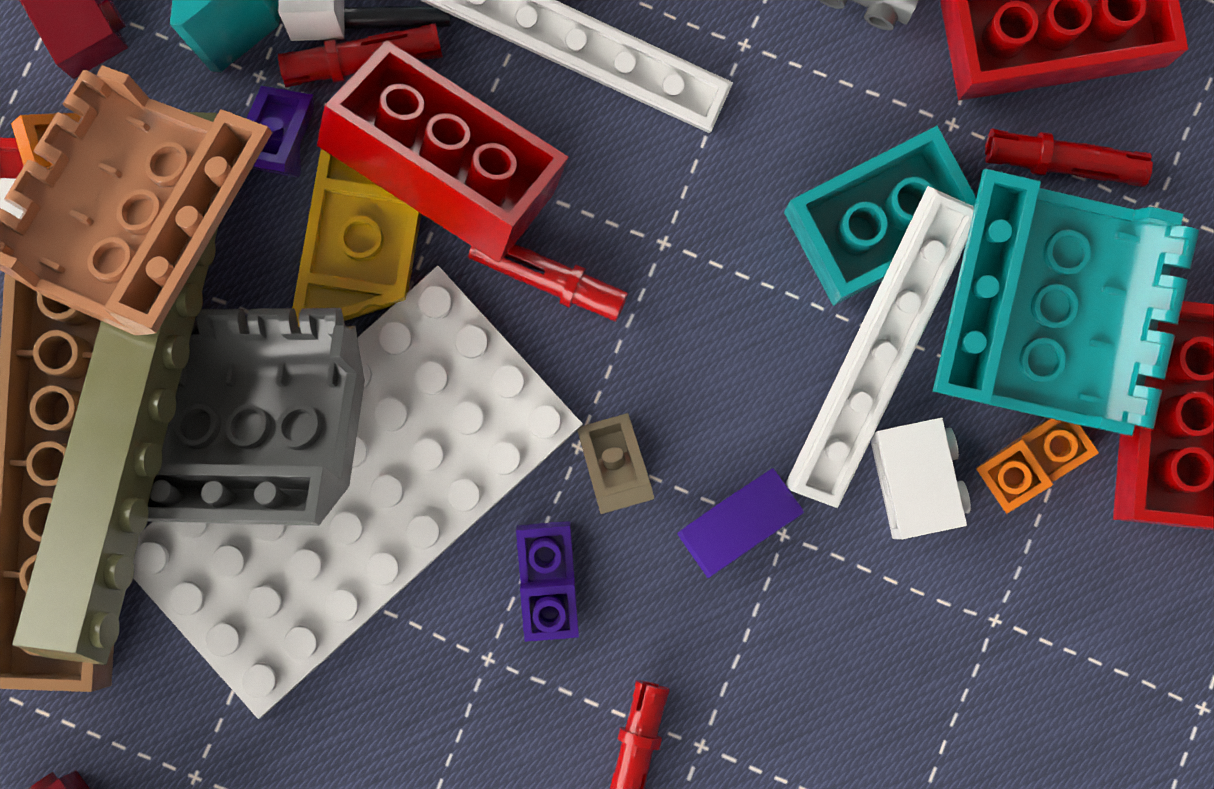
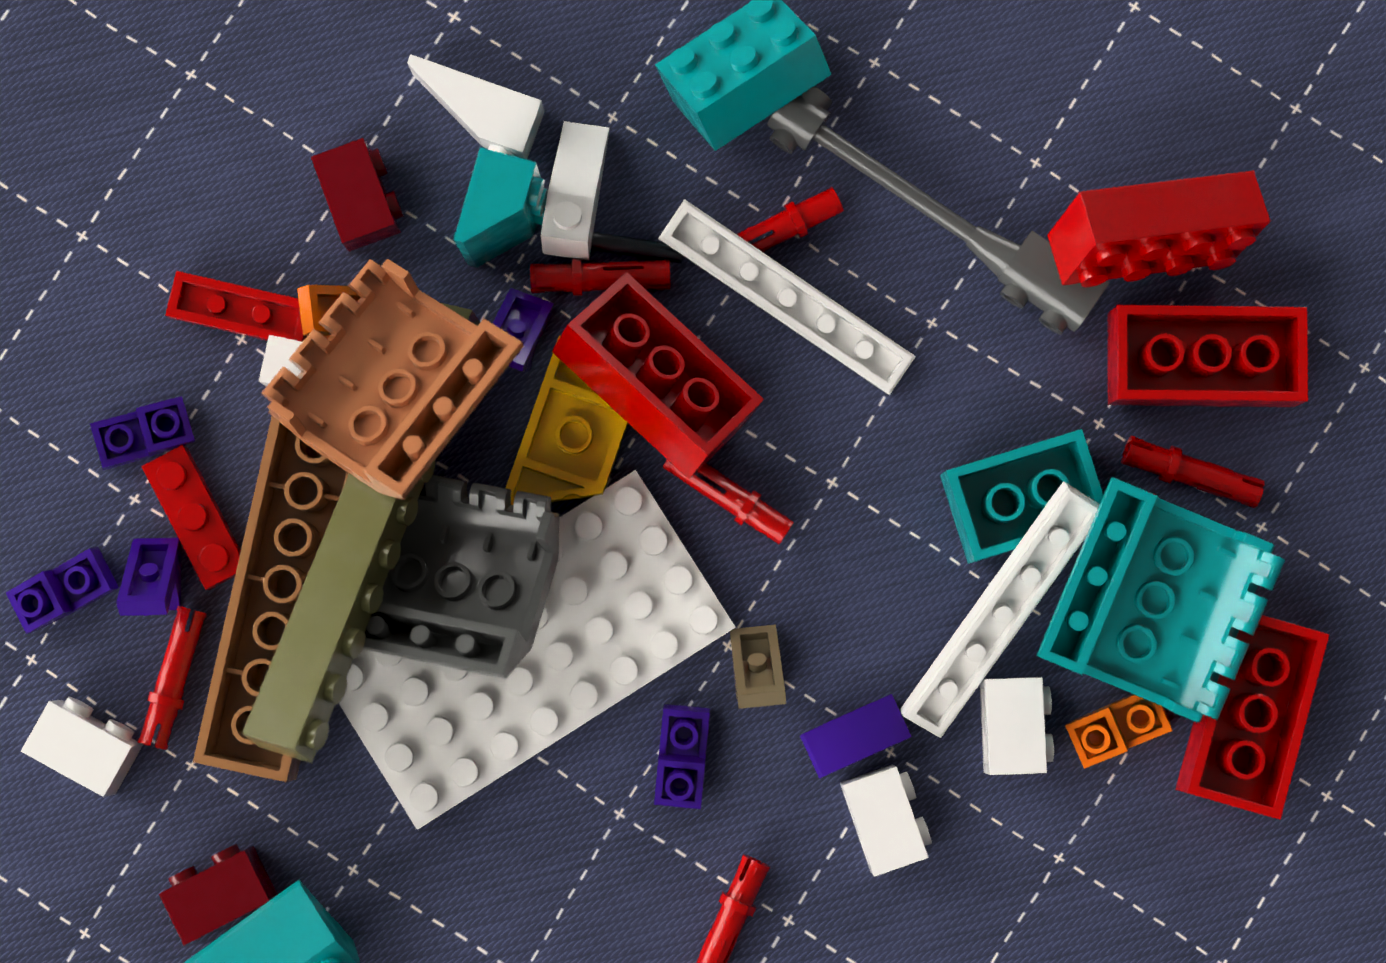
camera: 10 degrees right, 0 degrees up
(792, 612) = (885, 819): none -> white brick

